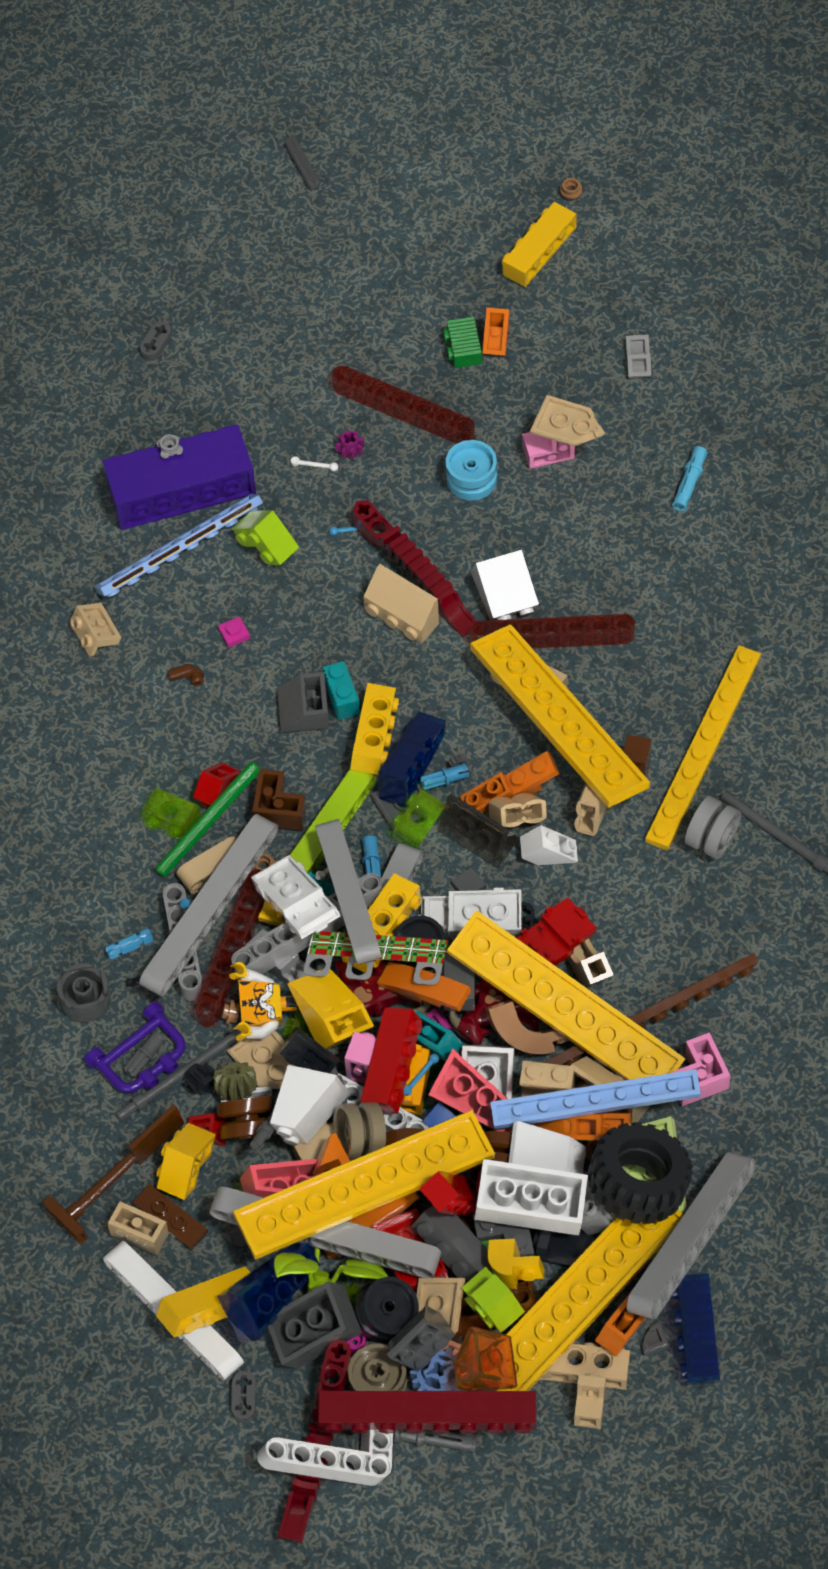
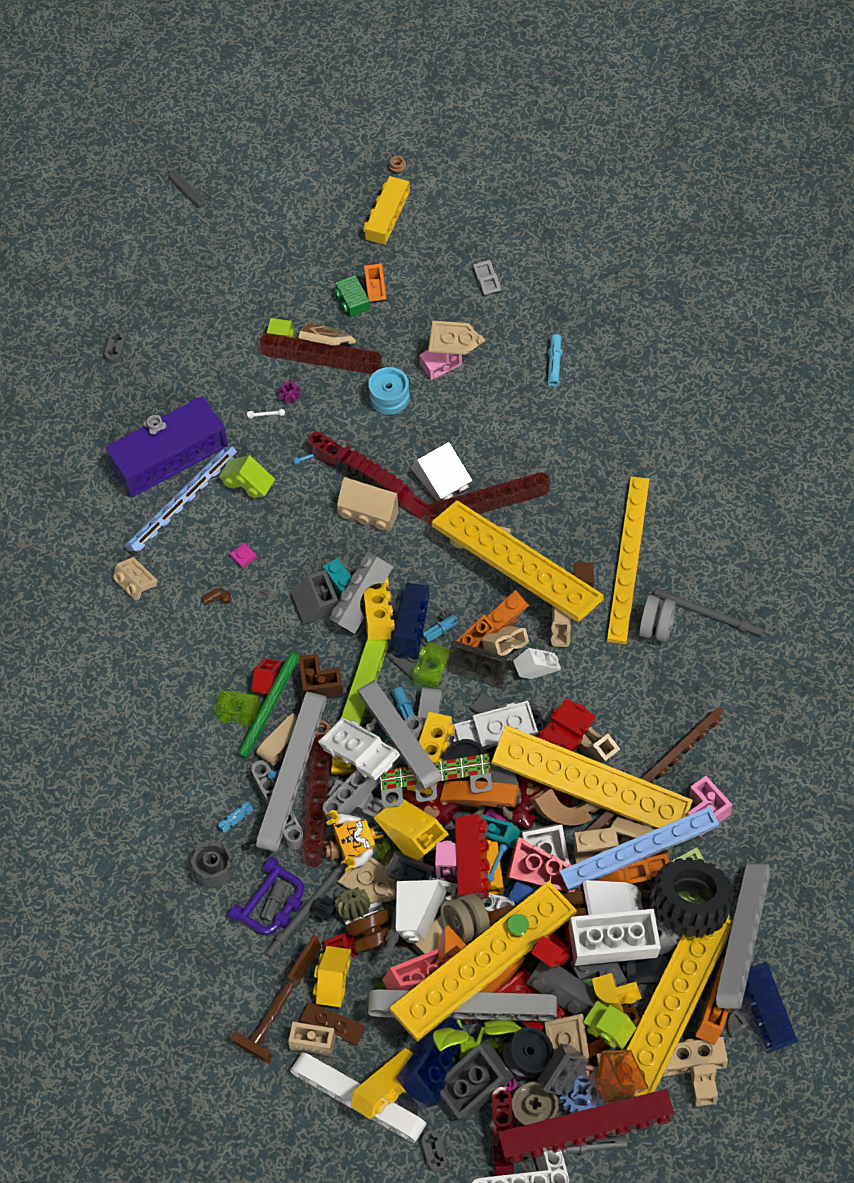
camera: 15 degrees left, 0 degrees up
(363, 362) = (281, 328): none -> lime brick
(375, 687) = (370, 572): none -> light grey arch
(414, 383) = (325, 335): none -> tan tile
(417, 1152) = (518, 925): none -> bright green tile

